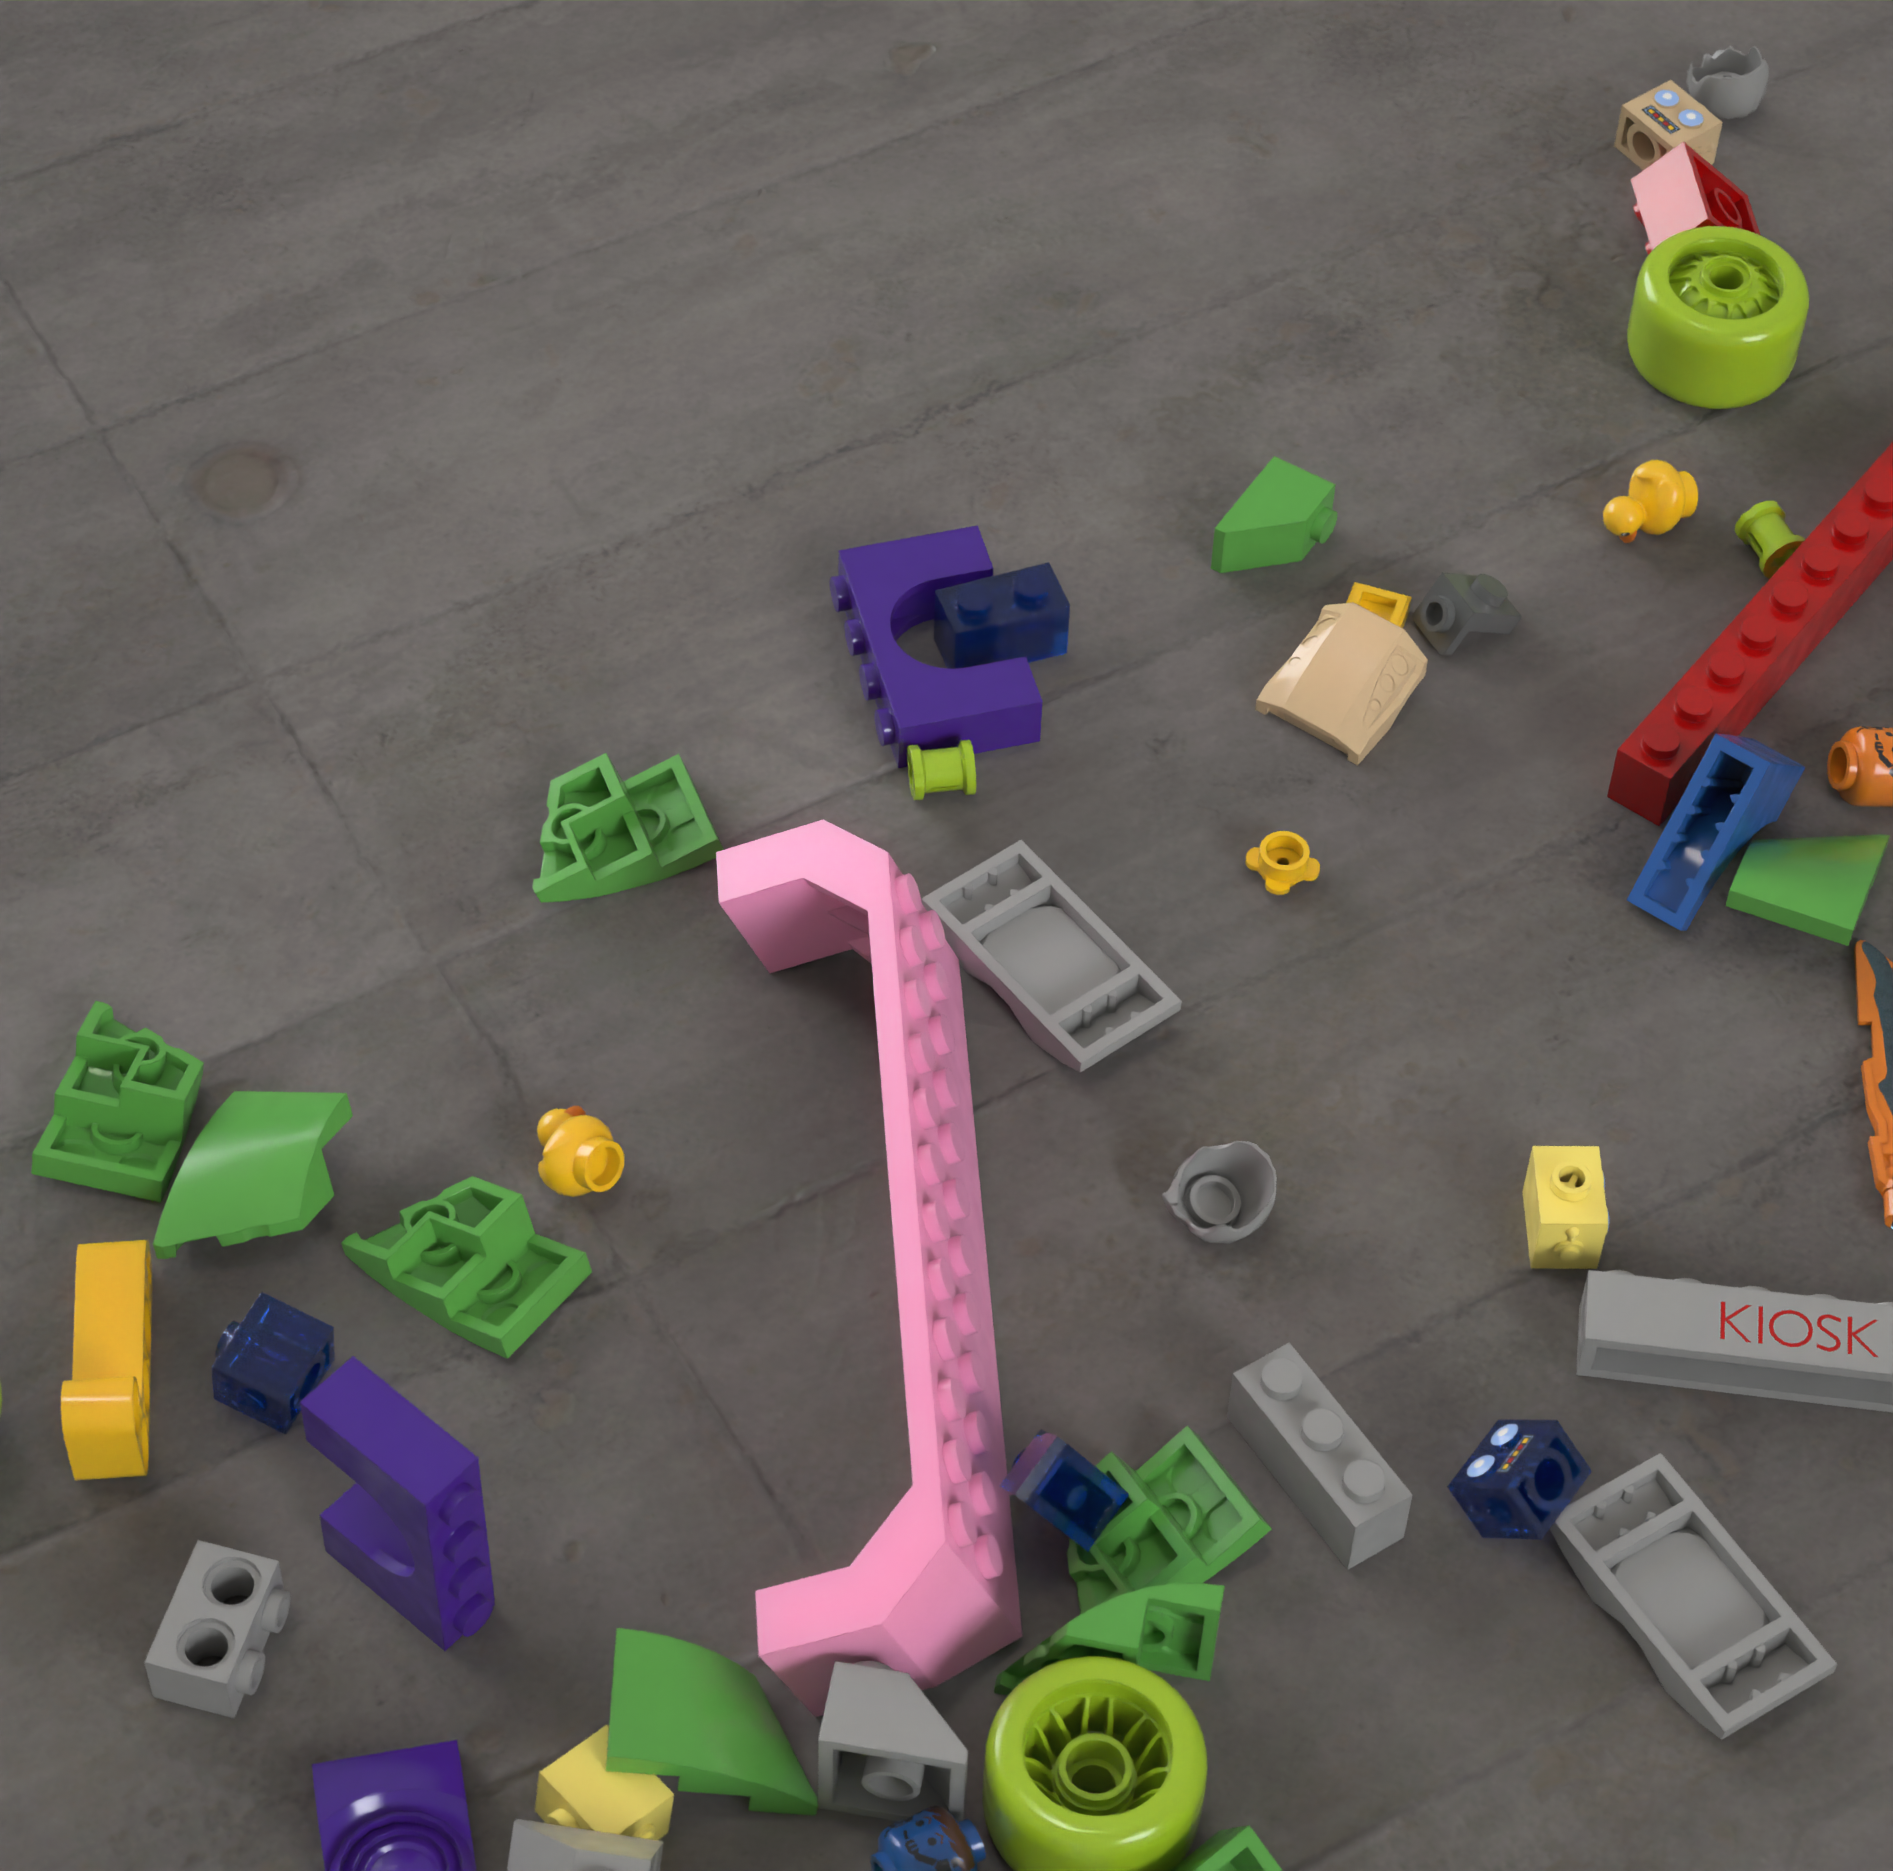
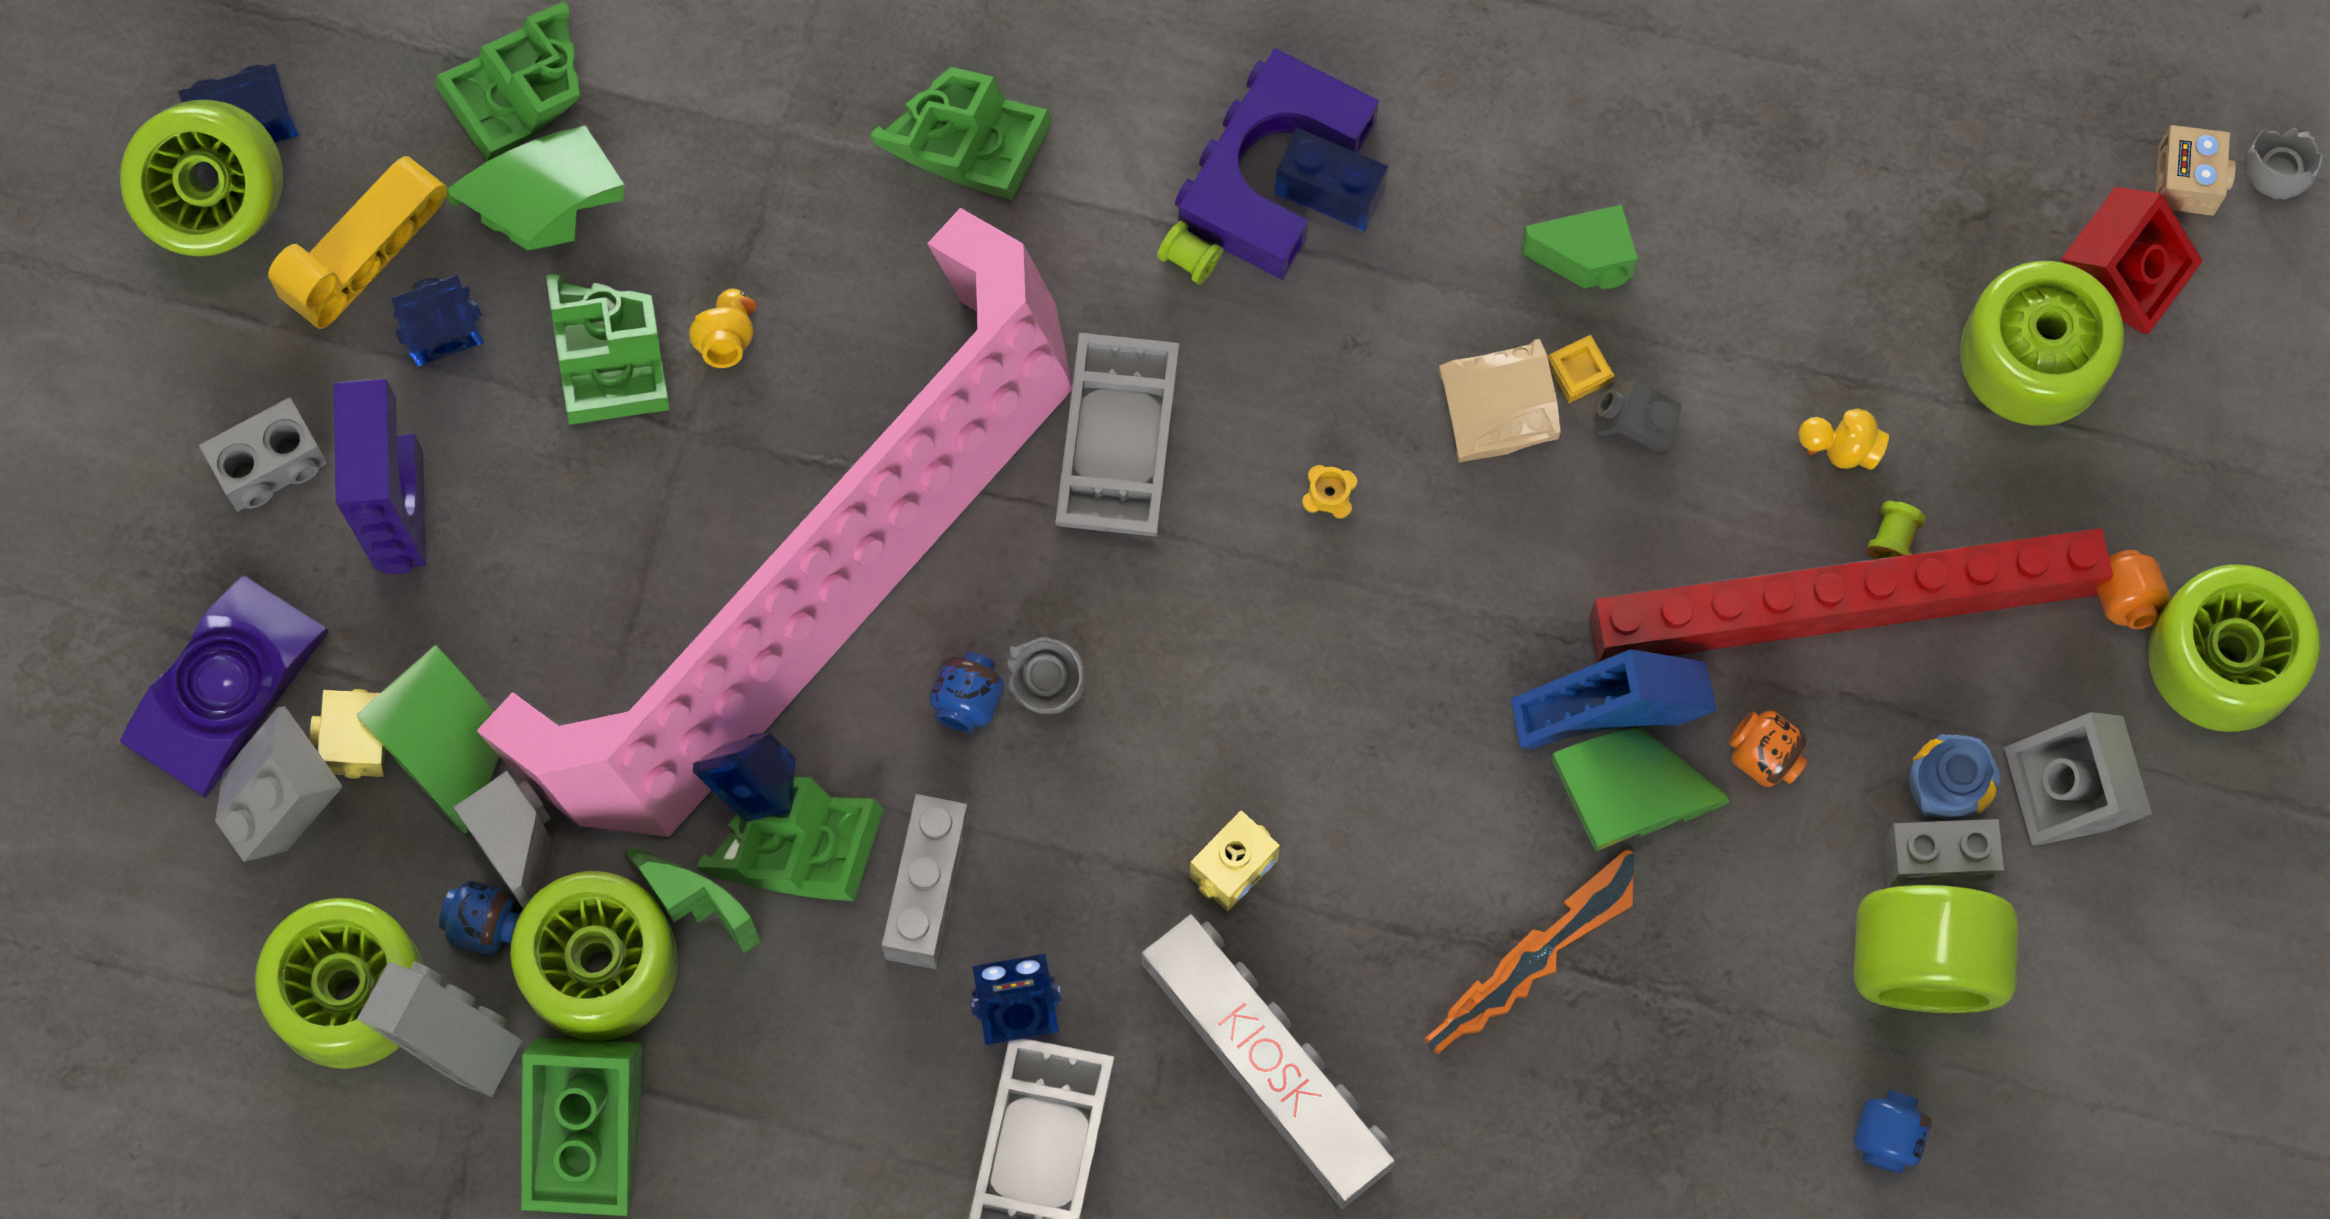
camera: 45 degrees right, 20 degrees up
(1164, 1269) = (966, 692): none -> blue head

